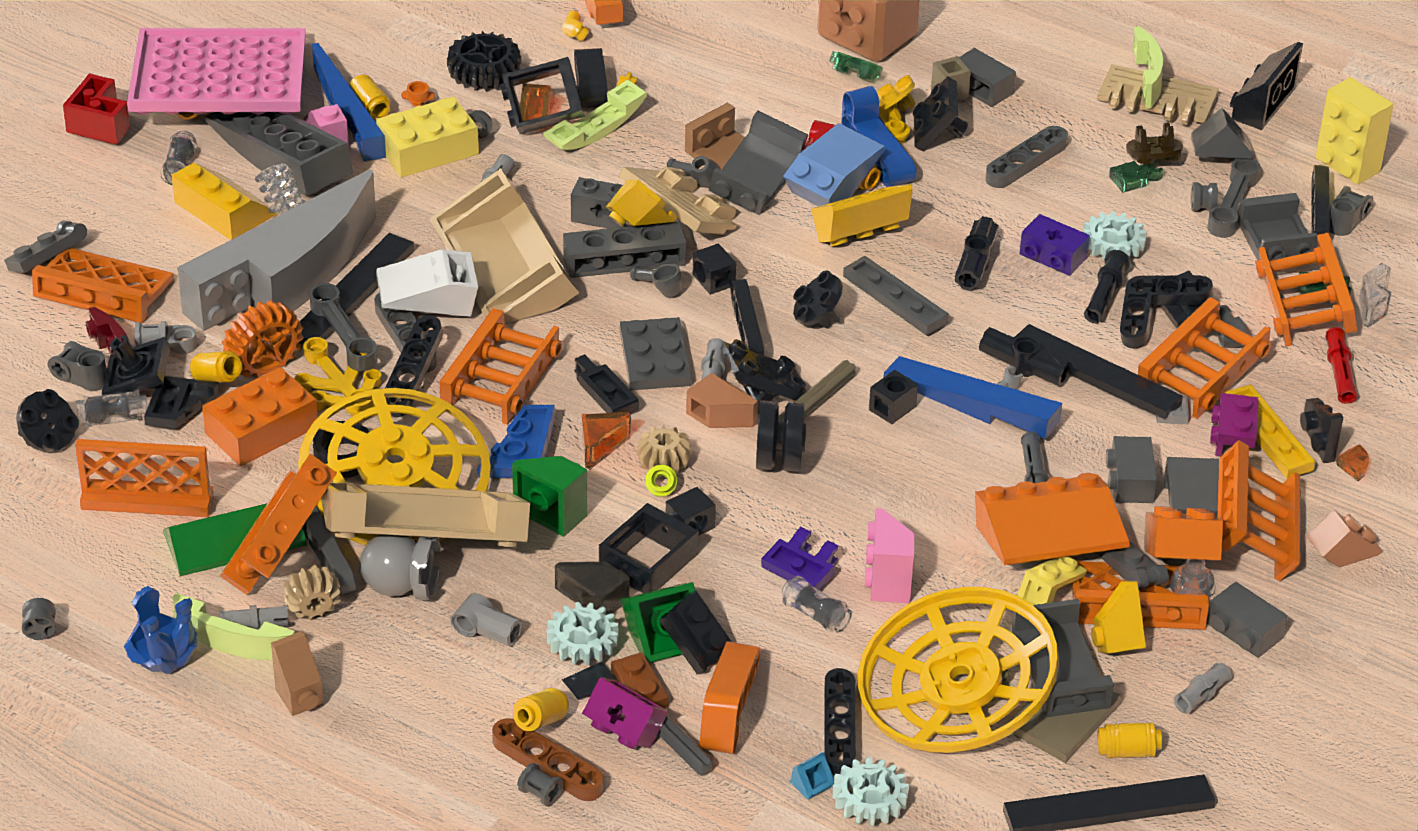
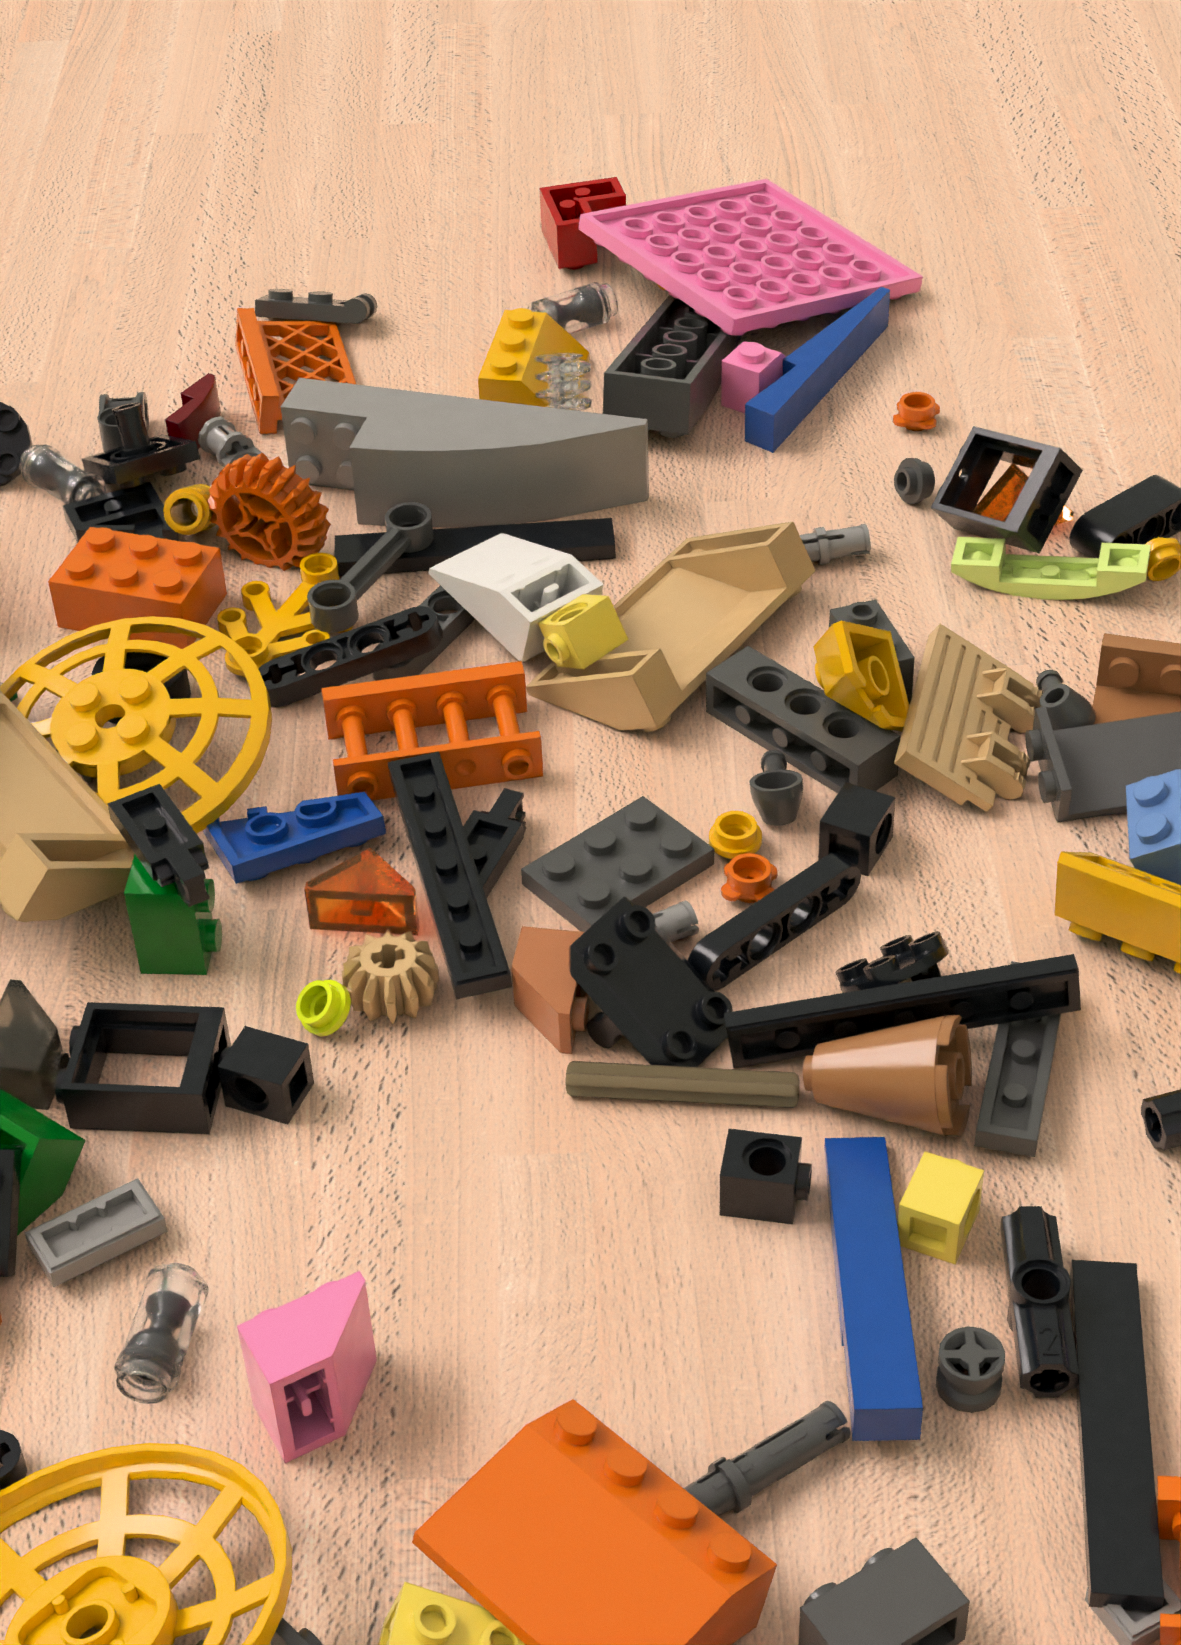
camera: 60 degrees right, 0 degrees up
(370, 96) = (855, 378): yellow head -> none
(428, 136) = (828, 453): light yellow brick -> none
(482, 60) = (1050, 415): black gear -> none
(495, 277) = (582, 631): none -> light yellow brick
(551, 457) = (163, 841): none -> black hinge
(617, 398) = (449, 876): none -> black tile
(675, 306) = (735, 834): none -> yellow plate
(708, 317) = (748, 878): none -> orange plate
(735, 605) = (96, 1232): none -> light grey plate
(780, 436) = (503, 1078): black wheel -> none
(793, 559) = (245, 1256): dark purple plate -> none
(848, 310) = (977, 996): none -> black tile
(882, 328) = (898, 1074): none -> medium nougat cone
(956, 354) = (940, 1207): none -> light yellow brick
(1011, 380) = (971, 1311): light grey hand -> none
(1041, 385) = (982, 1357): none -> dark grey wheel

